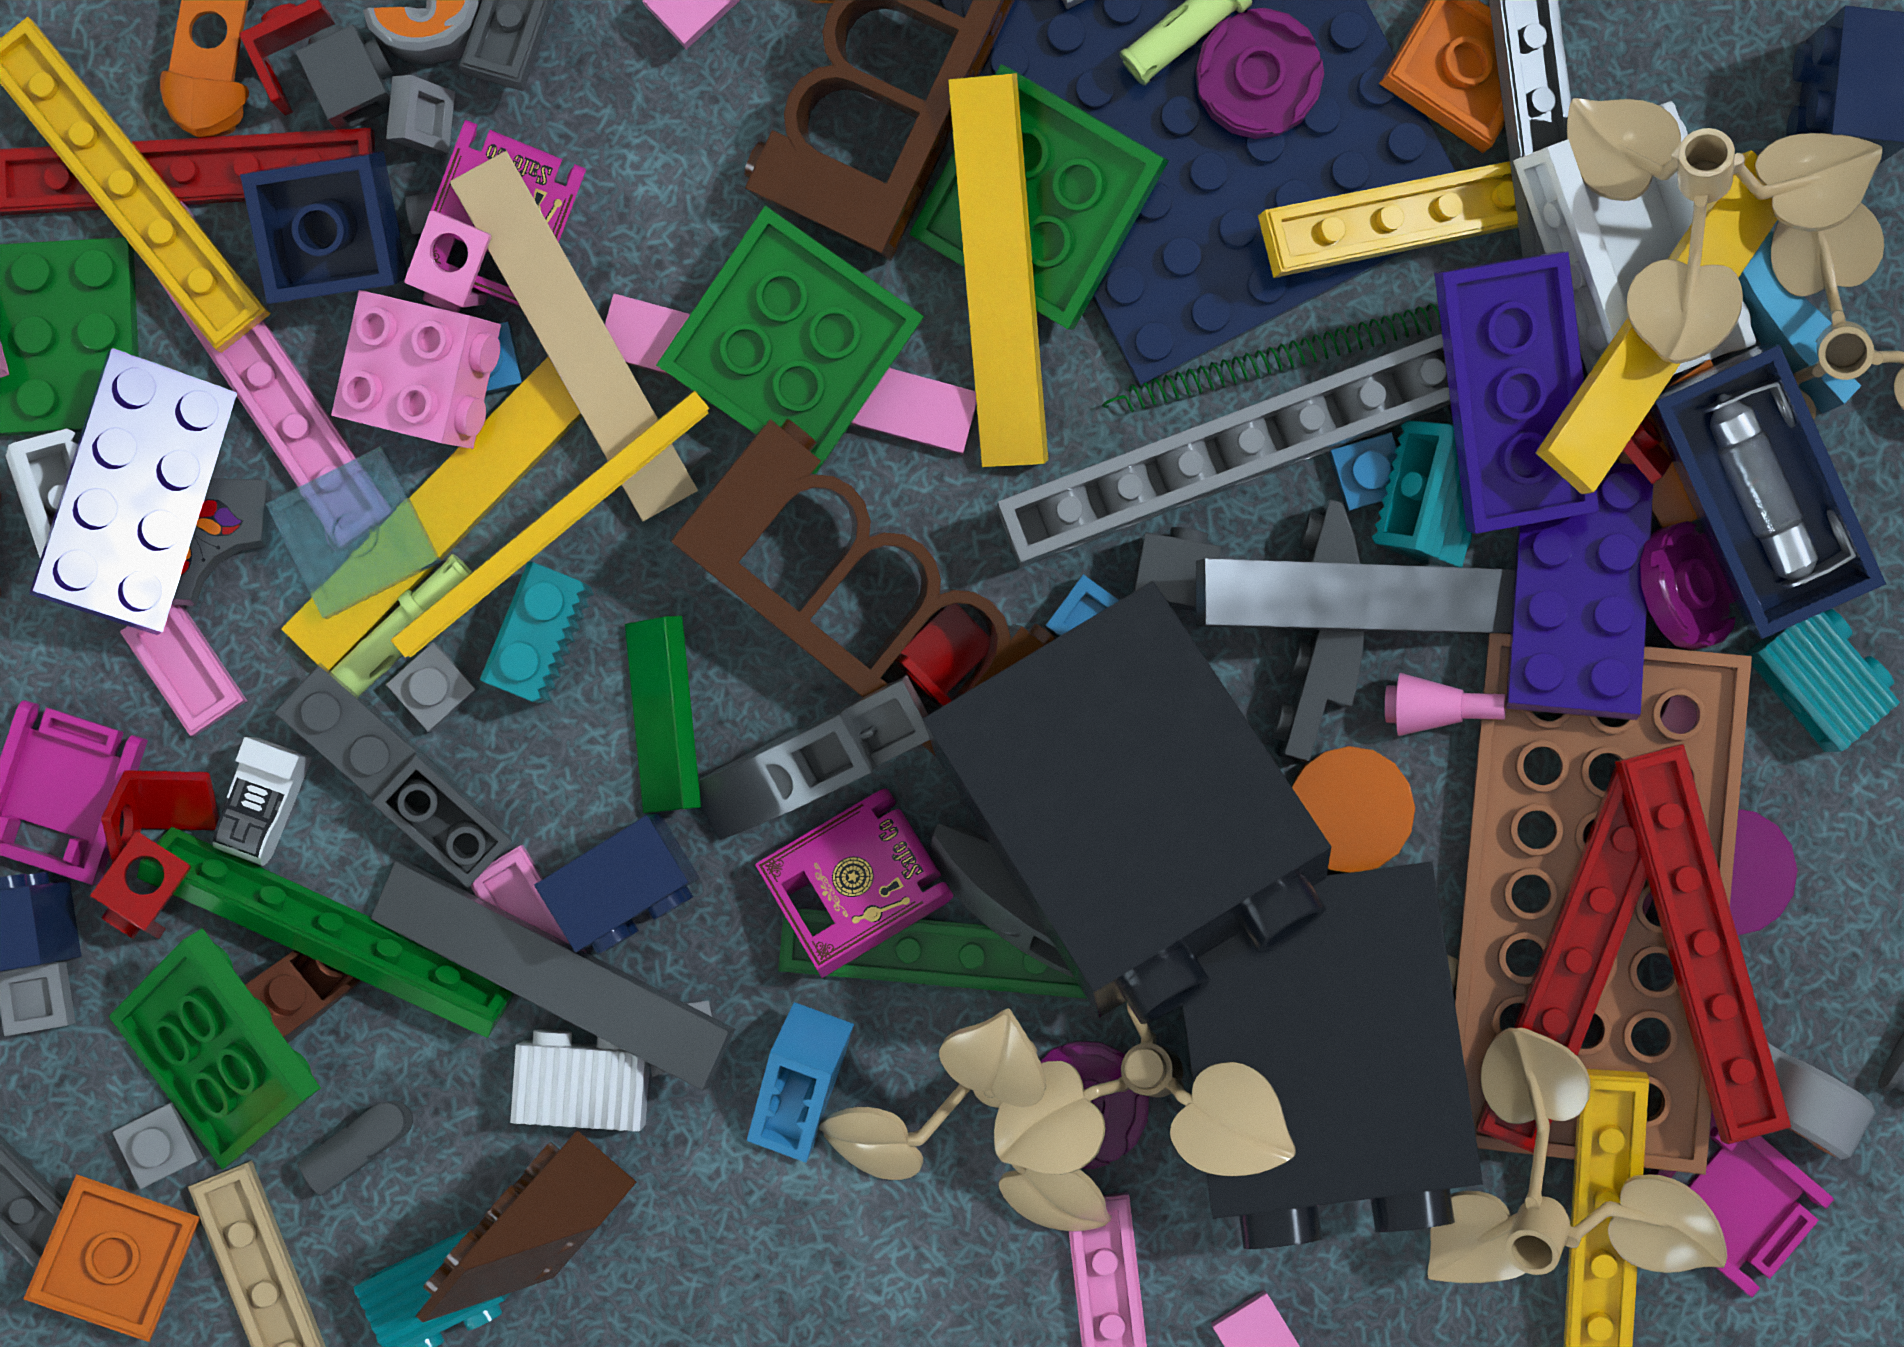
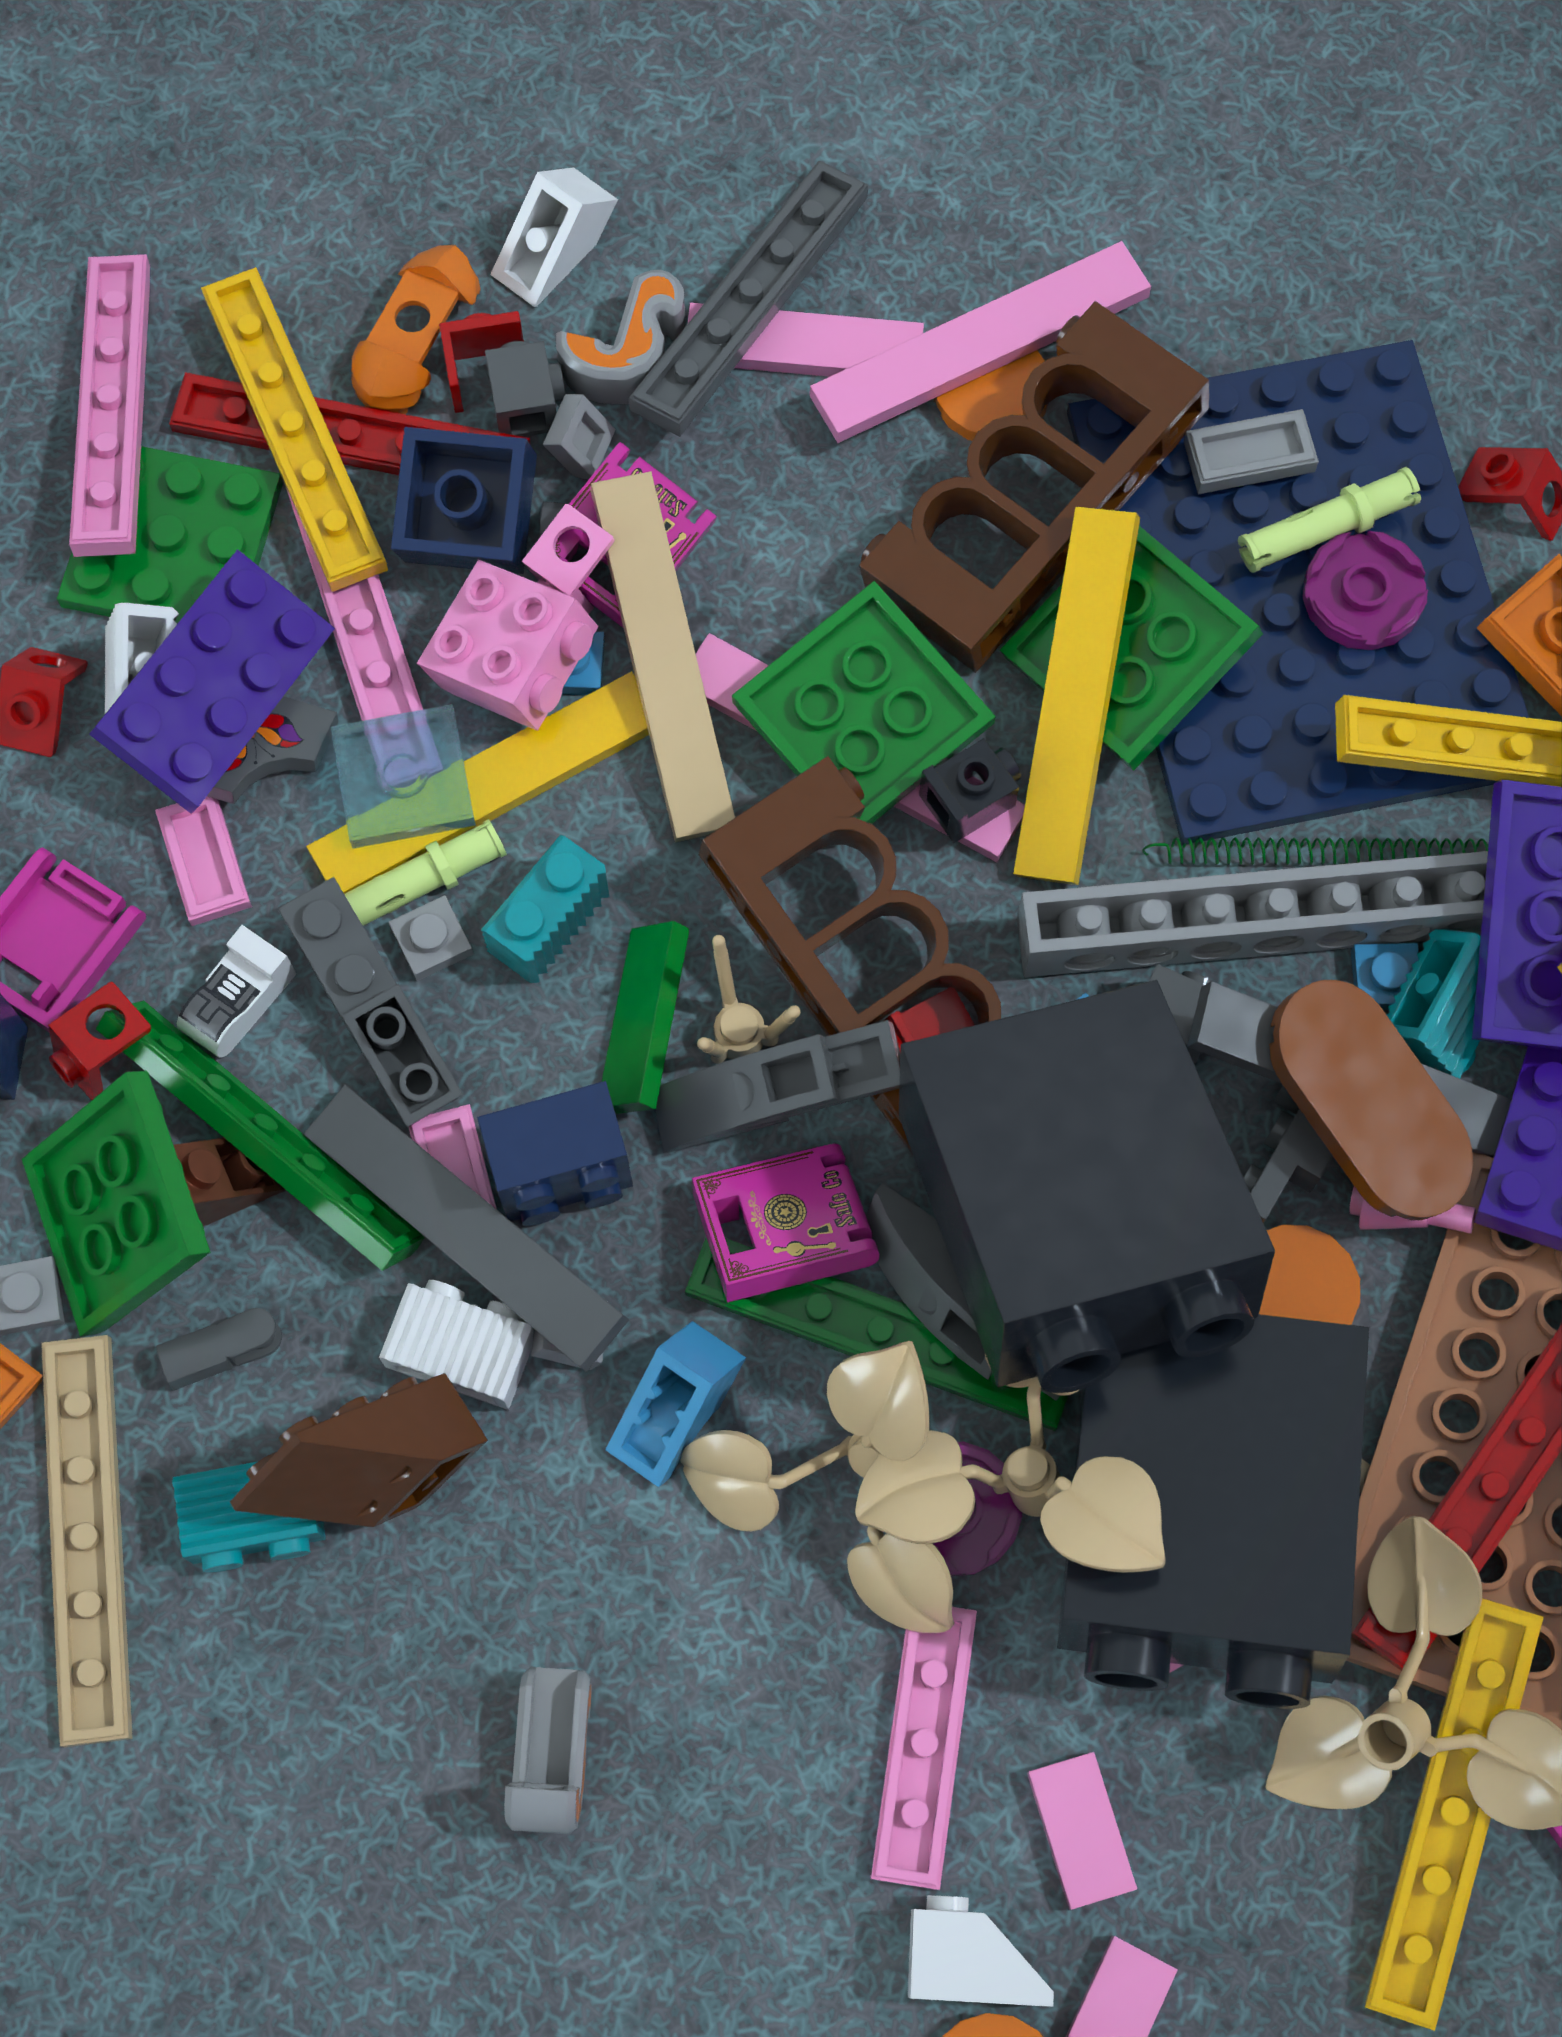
camera: 15 degrees right, 15 degrees down
(158, 802) = (141, 970): red bracket -> none
(550, 525) = (590, 807): yellow tile -> none
(756, 699) = (739, 1026): none -> tan plant
(914, 419) = (965, 806): none -> black brick
(1383, 625) = (1370, 1100): none -> dark orange tile

